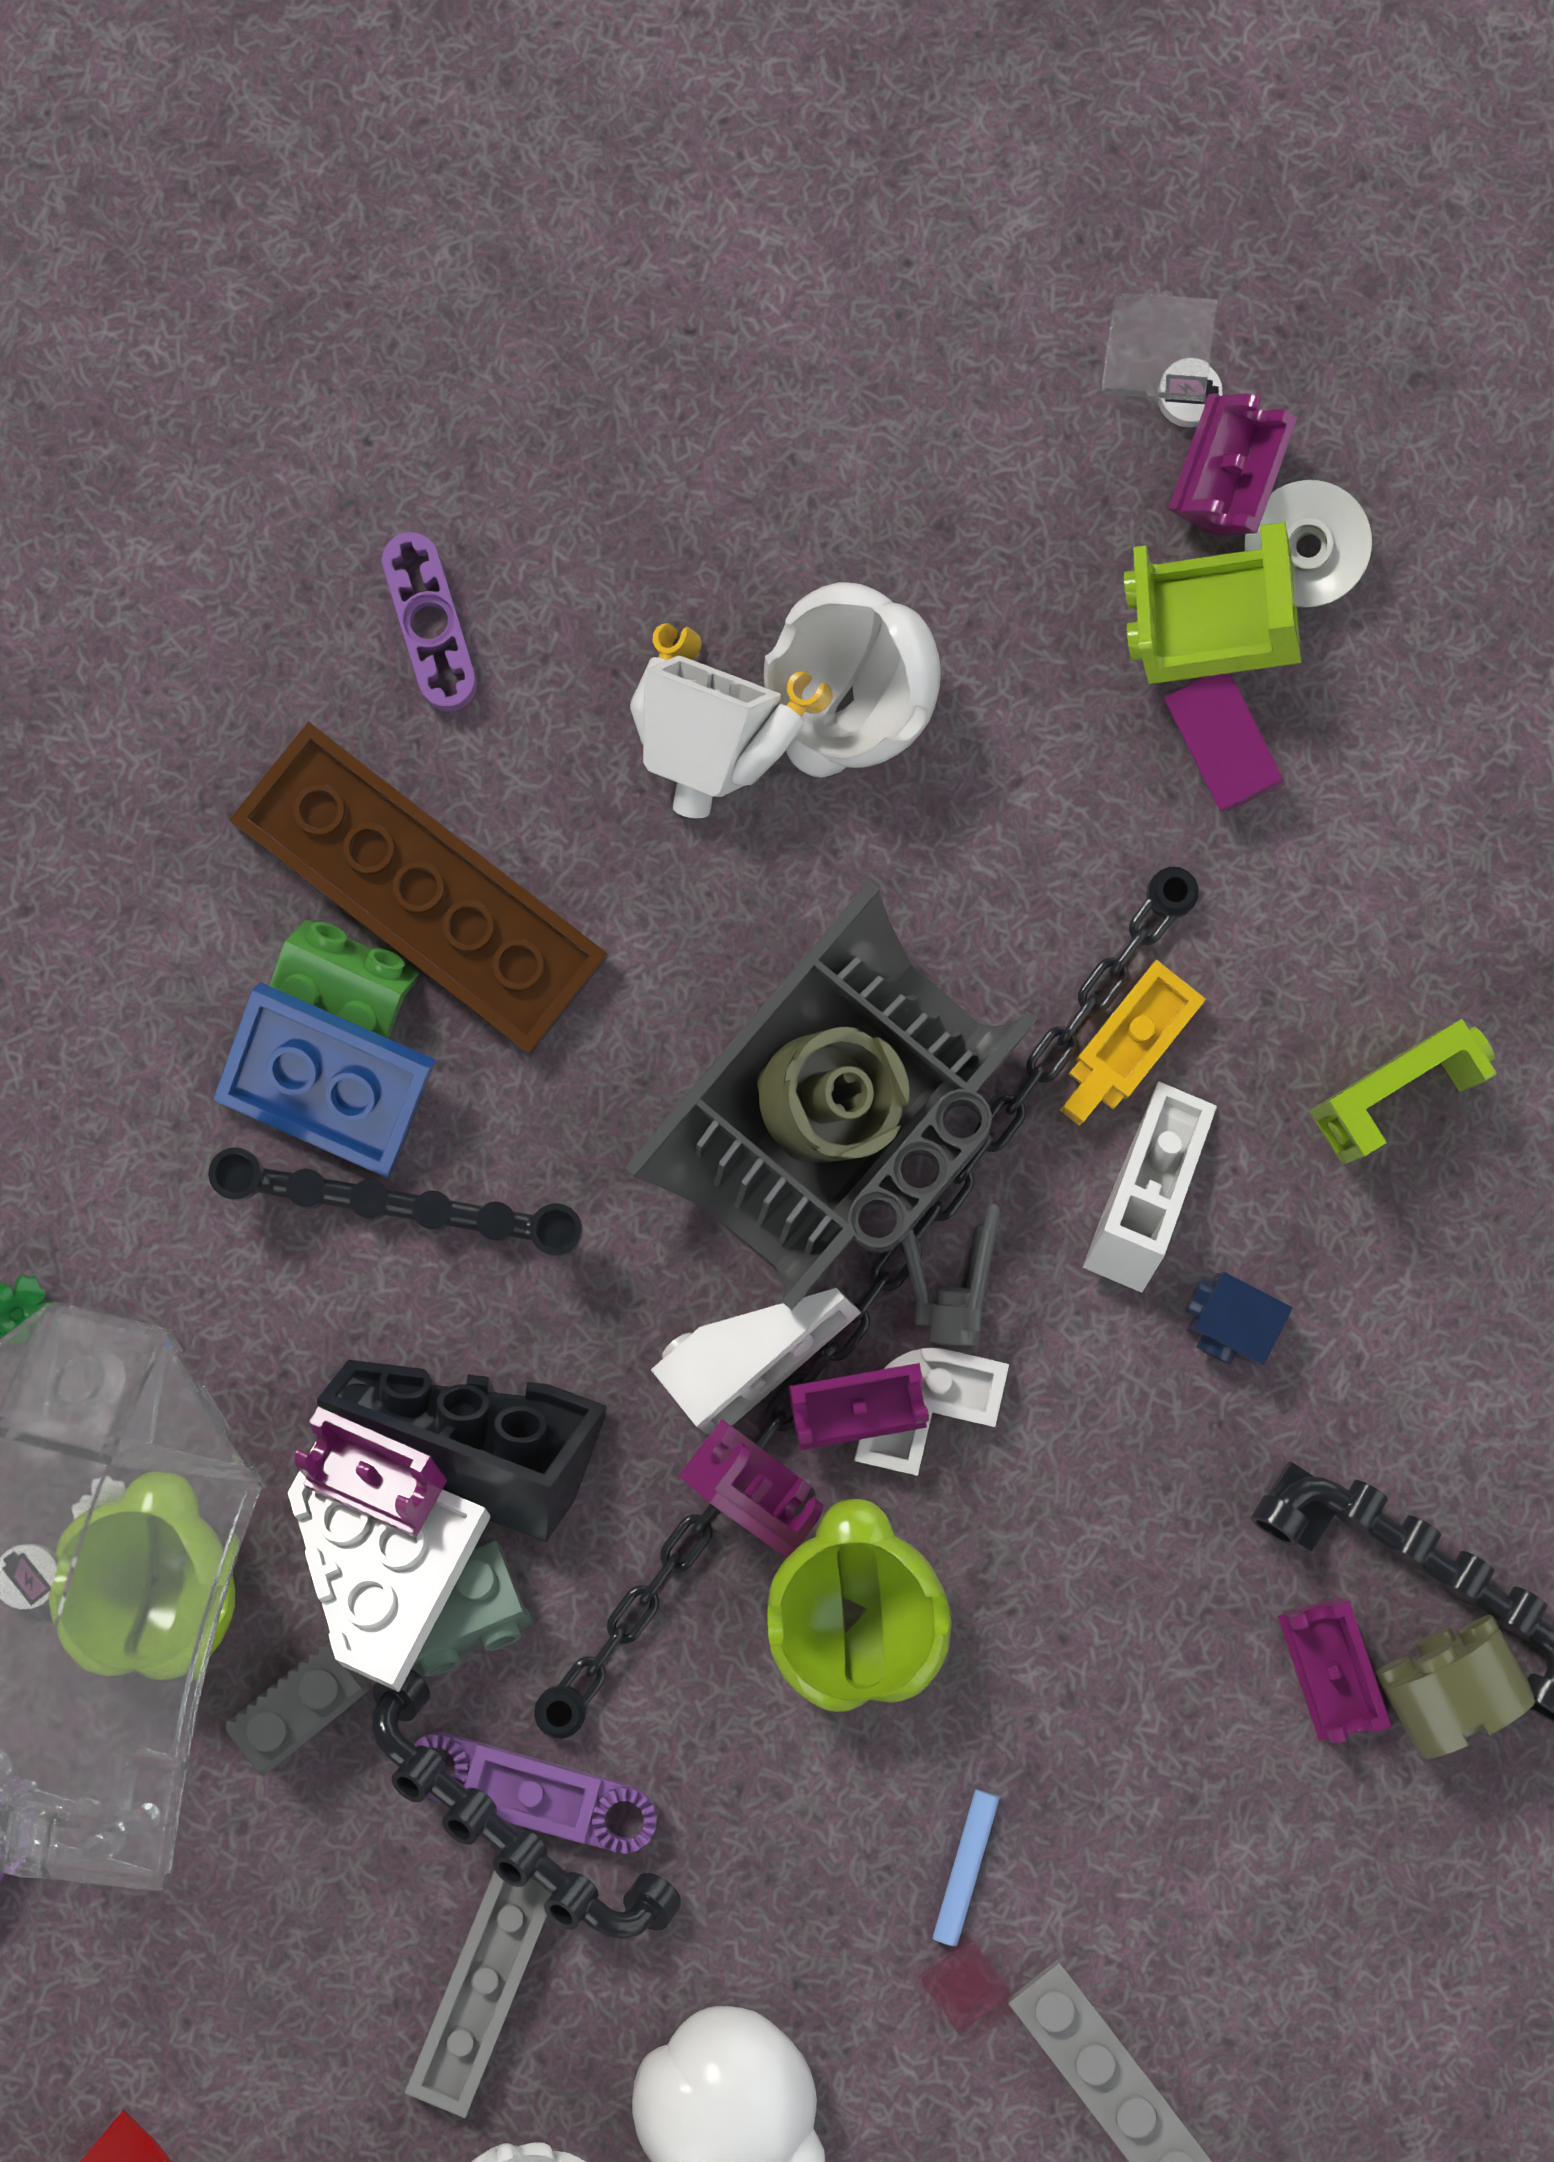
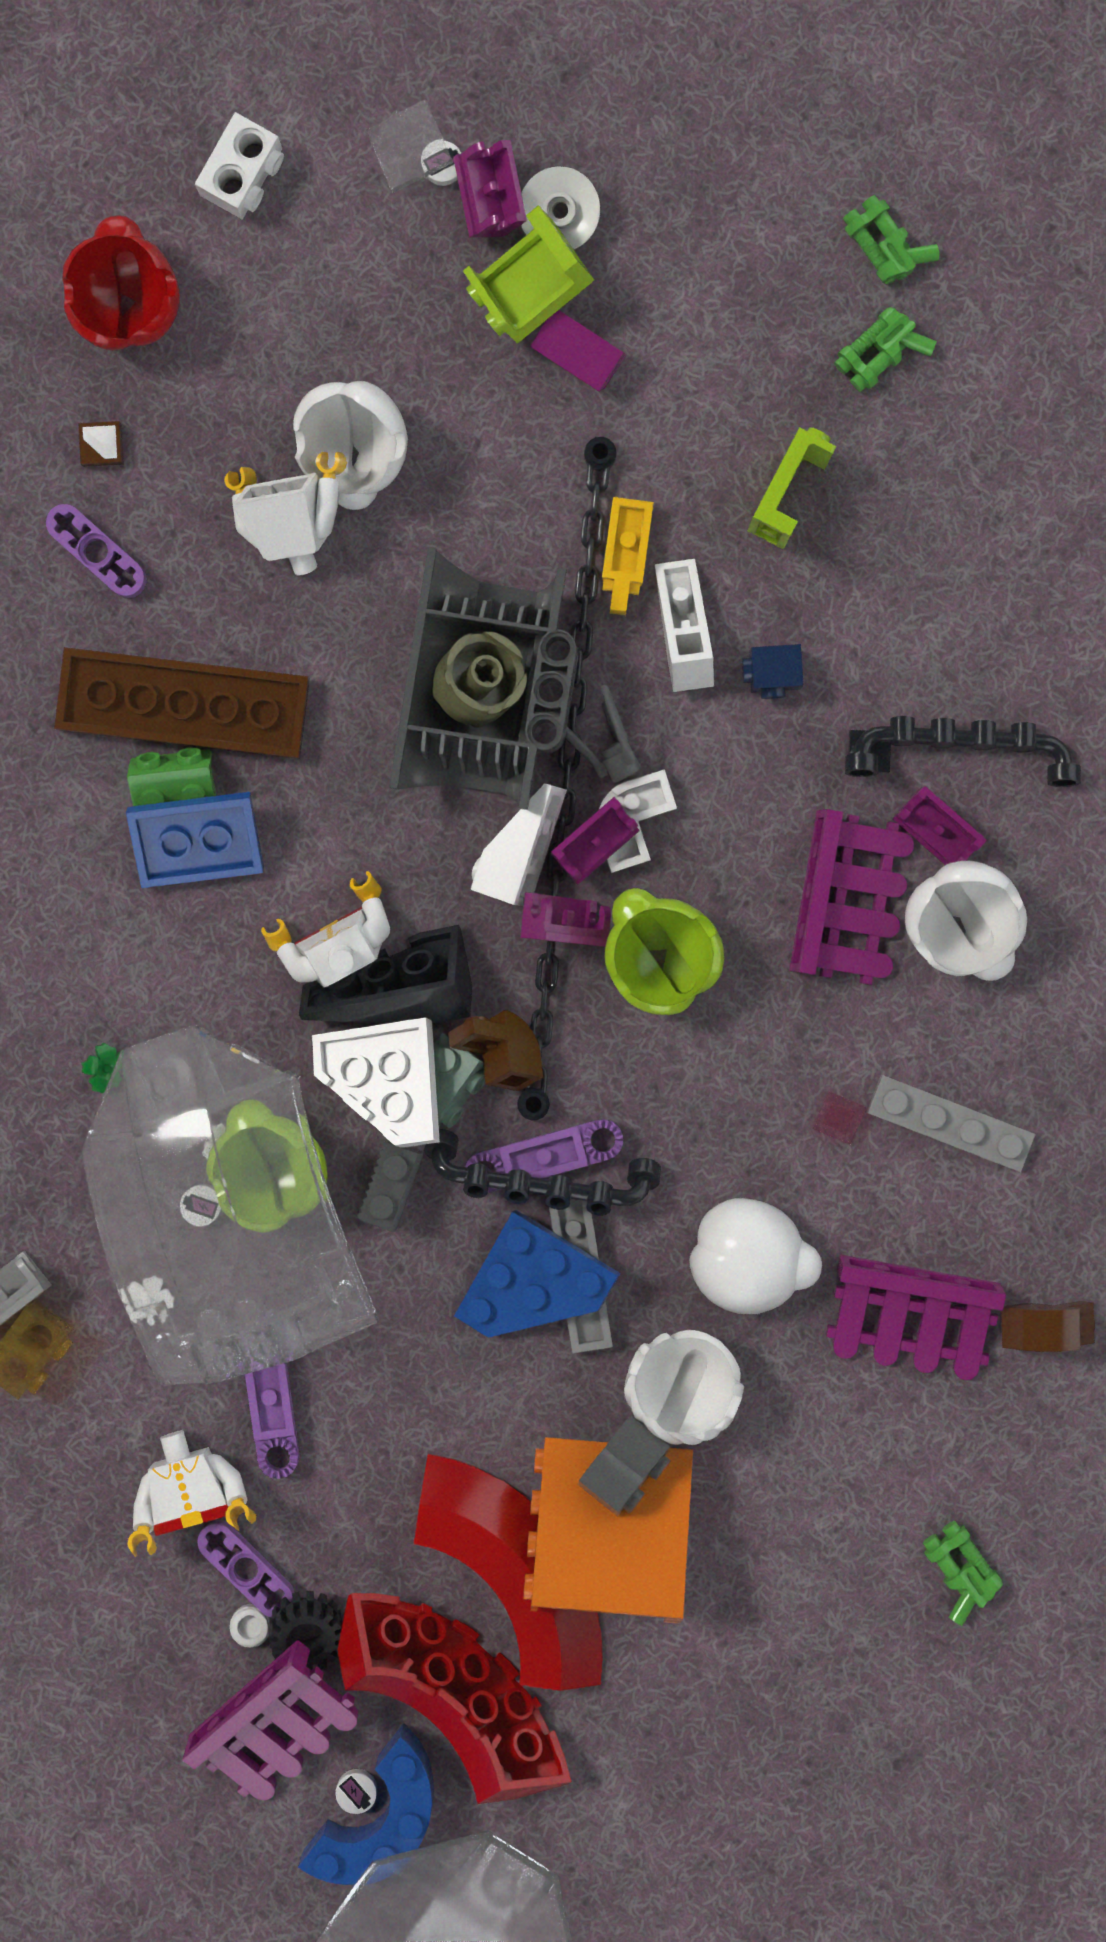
camera: 25 degrees left, 5 degrees up
(240, 1175) = (182, 919): black bar -> none
(370, 1473) = (352, 1036): hinge -> none
(412, 1960) = (533, 1281): none -> blue plate
(428, 1339) = (339, 946): none -> white torso
(521, 487) = (101, 443): none -> tile
(570, 1613) = (507, 1048): none -> reddish brown brick
(678, 267) = (116, 264): none -> red piece
(910, 230) = (229, 164): none -> white brick
(966, 1867) = (802, 1055): light blue piece -> none
(1101, 1685) = (819, 913): none -> magenta fence
(1336, 1827) = (989, 912): none -> white piece
(1456, 1687) = (1010, 797): olive brick -> none

